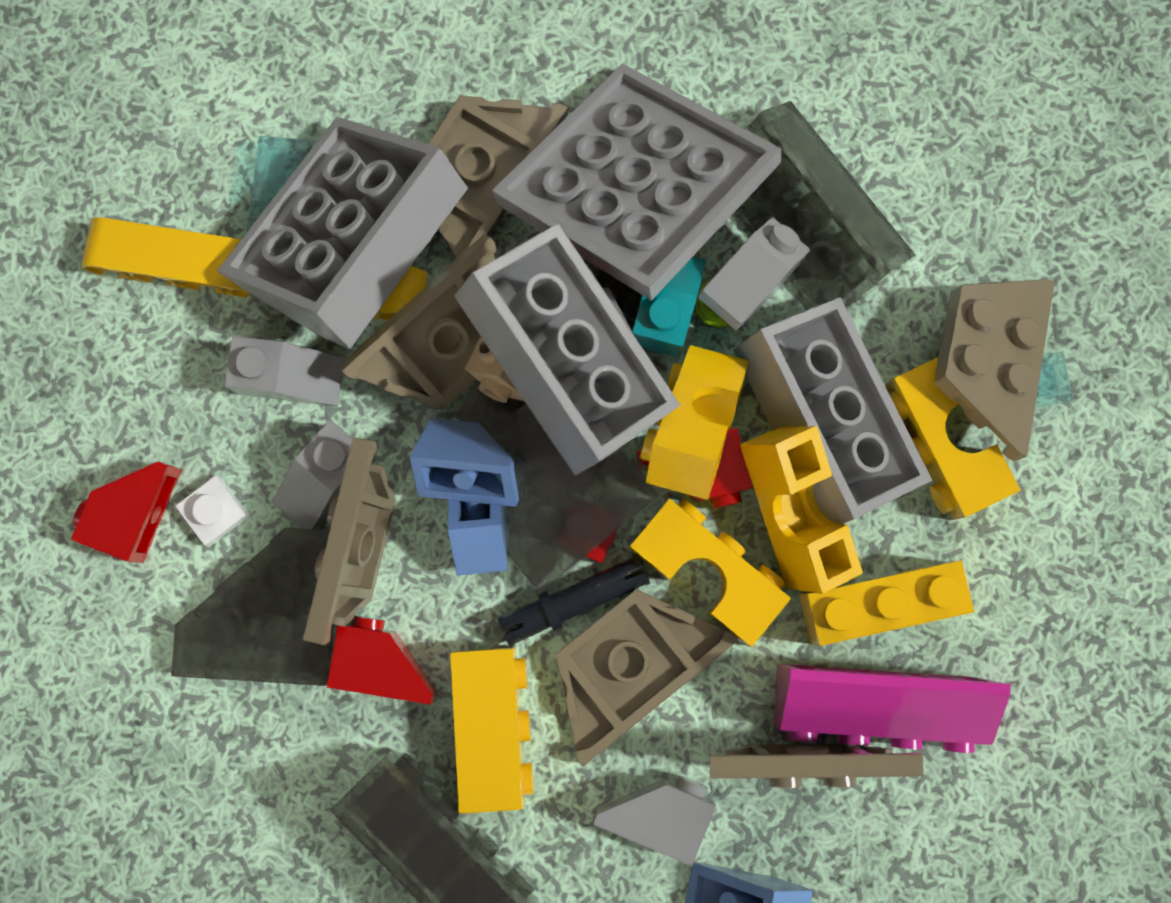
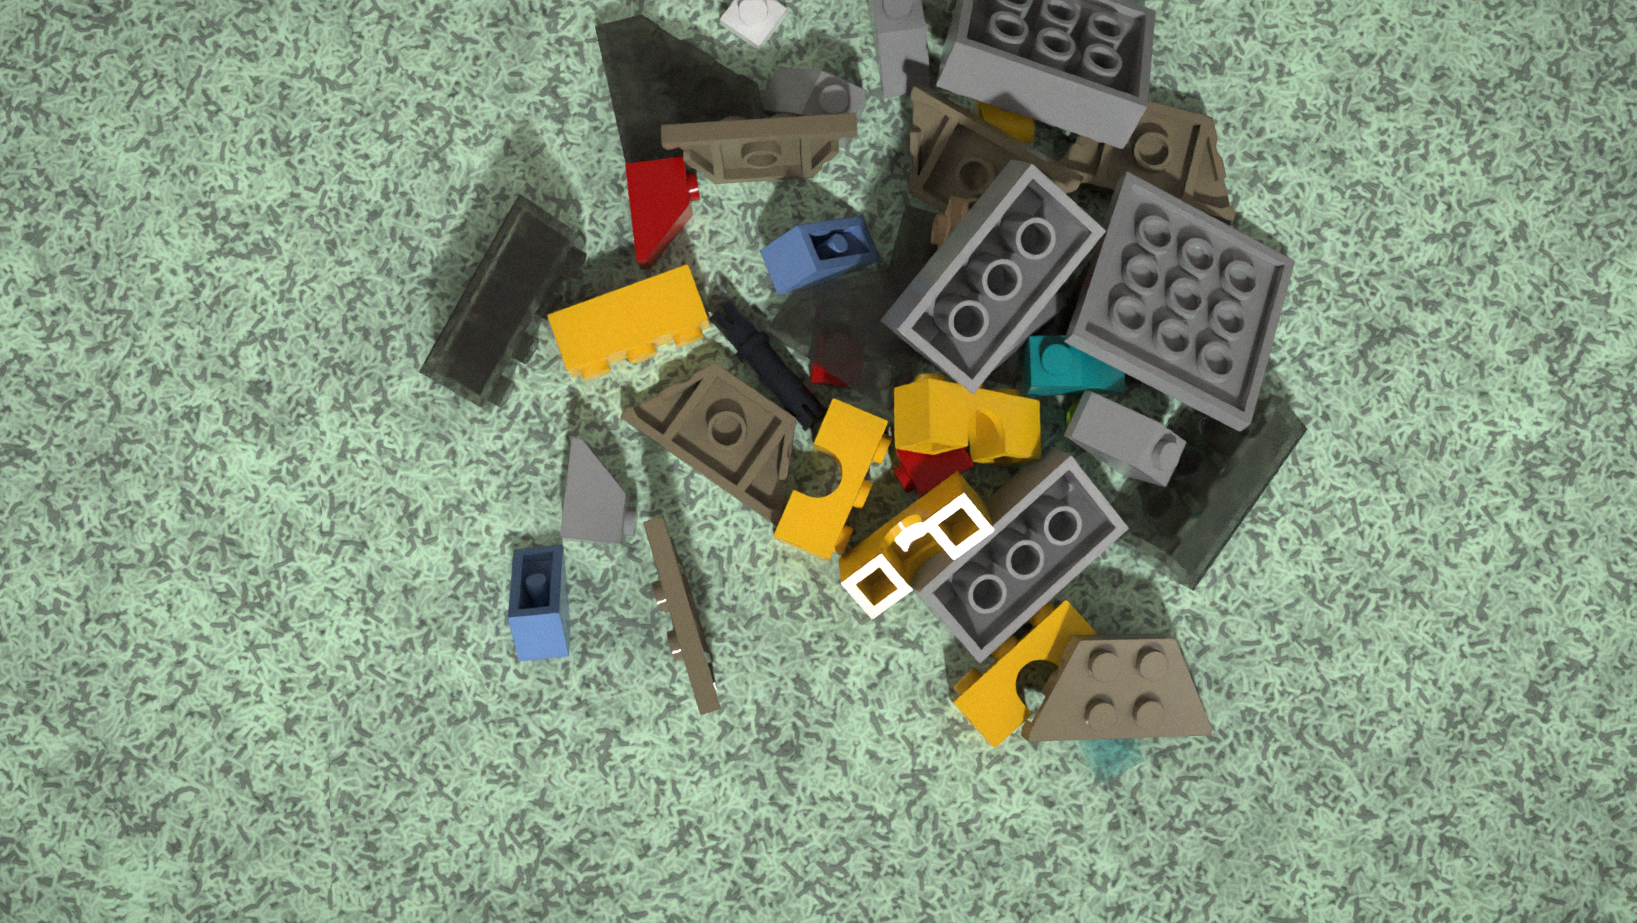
camera: 70 degrees right, 0 degrees up
(462, 464) = (862, 221): medium blue slope -> none
(887, 603) = (851, 652): yellow arch -> none
(889, 706) = (756, 677): dark pink slope -> none

